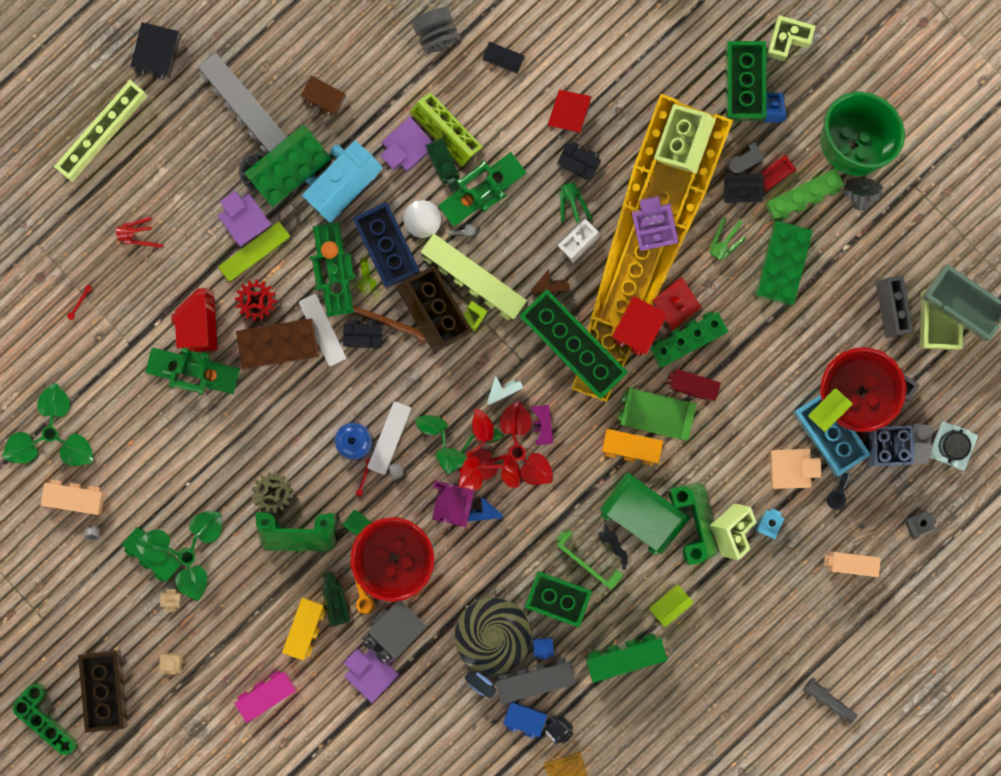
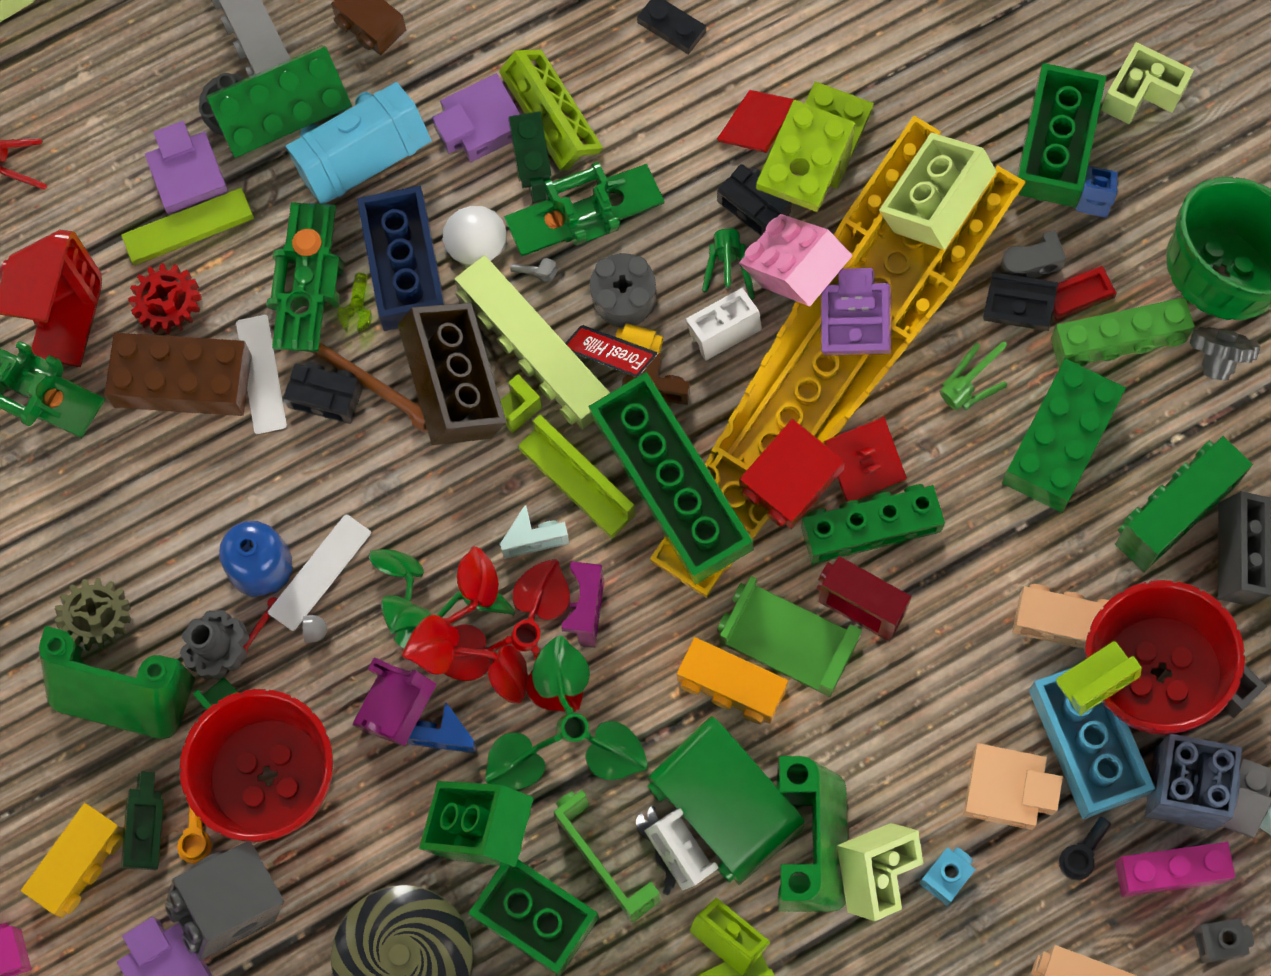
camera: 20 degrees right, 15 degrees down
(344, 493) = (214, 645): none -> dark grey plant
(508, 228) = (621, 272): none -> dark grey brick
(516, 560) = (476, 823): none -> green brick
(518, 351) = (577, 478): none -> lime fence
(520, 275) = (610, 350): none -> red sticker
(533, 263) = (641, 336): none -> yellow brick
(575, 501) = (613, 751): none -> green plant
(608, 124) = (816, 144): none -> lime bracket
(612, 198) = (795, 259): none -> bright pink brick
(626, 545) = (680, 850): none -> white hinge
(662, 582) = (729, 936): none -> lime slope
(802, 369) = (1055, 616): none -> light nougat brick
(856, 290) = (1182, 502): none -> green brick
(888, 492) = (1175, 869): none -> dark pink brick

